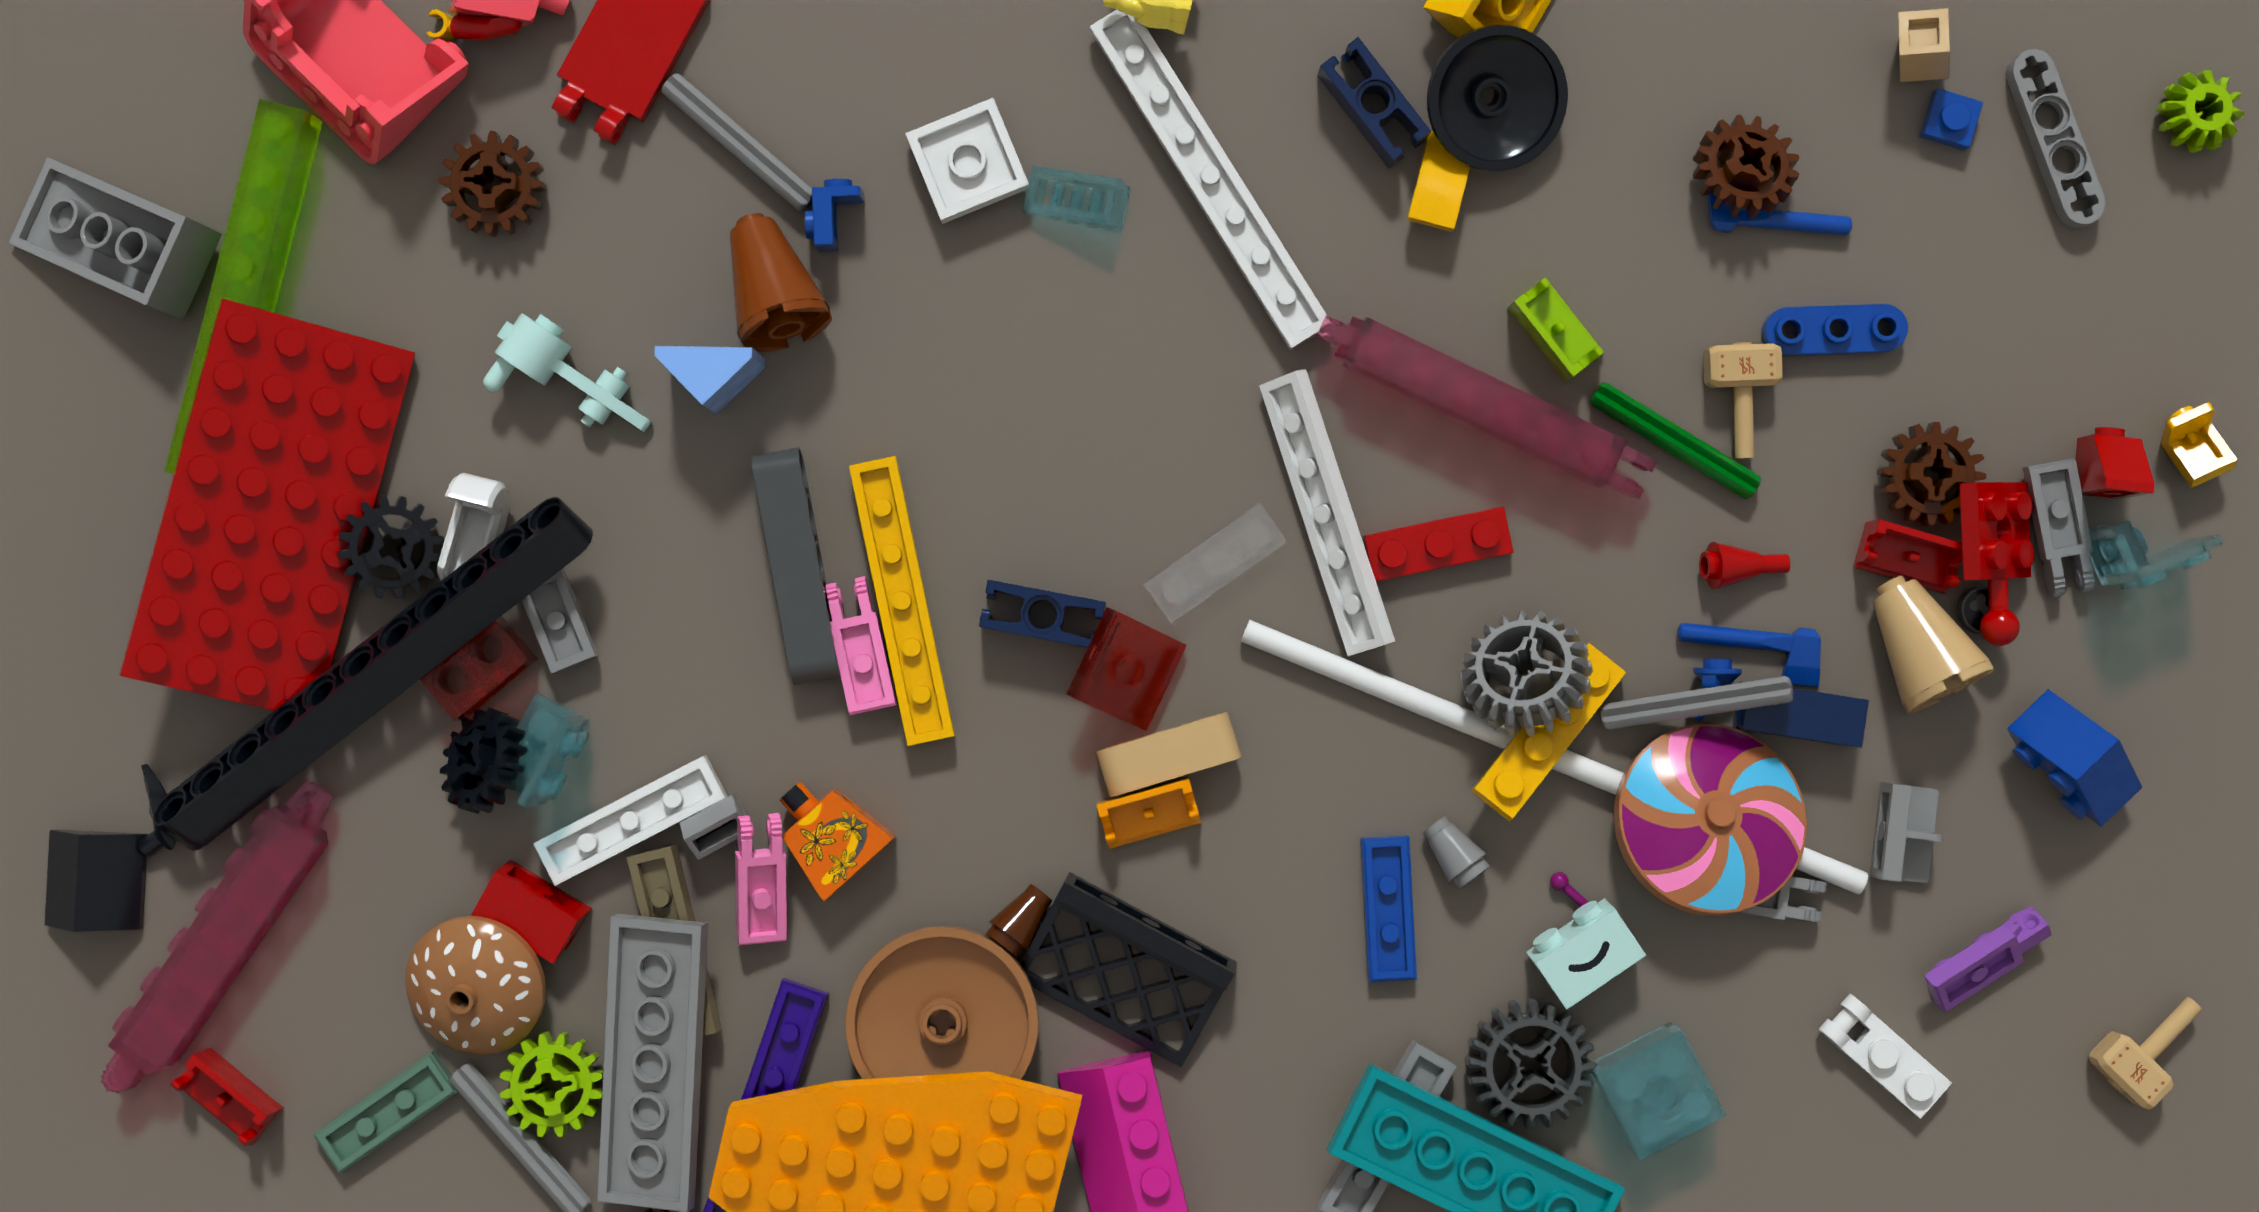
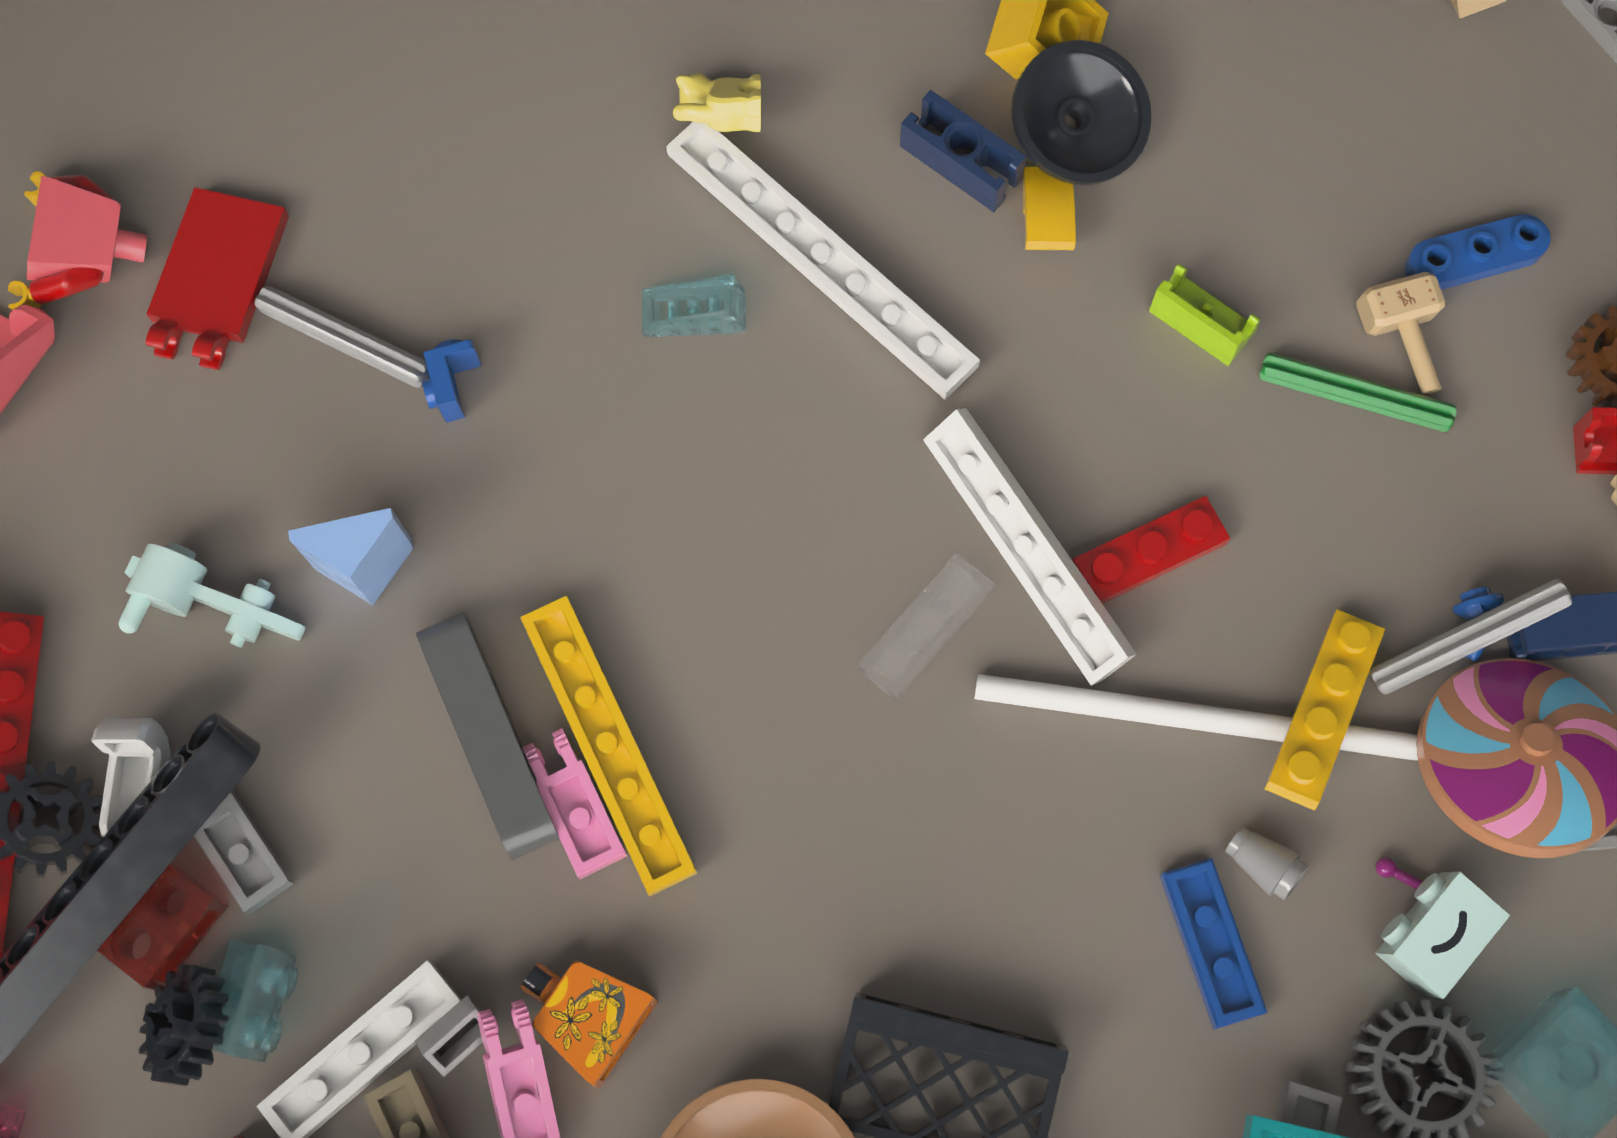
camera: 15 degrees left, 15 degrees down
(492, 163) = (102, 433): reddish brown gear -> none
(772, 287) = (406, 461): dark orange cone -> none
(967, 160) = (575, 297): white plate -> none
(1019, 920) = (816, 1056): reddish brown cone -> none
(1031, 597) = (745, 702): dark blue piece -> none
(1126, 669) = (862, 752): clear red tile -> none
(1148, 812) = (926, 902): light orange hinge -> none
(1168, 754) = (930, 833): tan beam -> none
(1484, 403) = (1158, 399): clear pink hinge -> none
(1511, 652) = (1313, 661): light grey gear -> none
(1728, 564) = (1451, 497): red cone -> none
(1745, 169) = (1340, 121): reddish brown gear -> none
(1783, 220) = (1334, 173): blue piece -> none
(1802, 647) = (1553, 561): blue piece -> none
(1951, 119) = (1519, 40): blue plate -> none

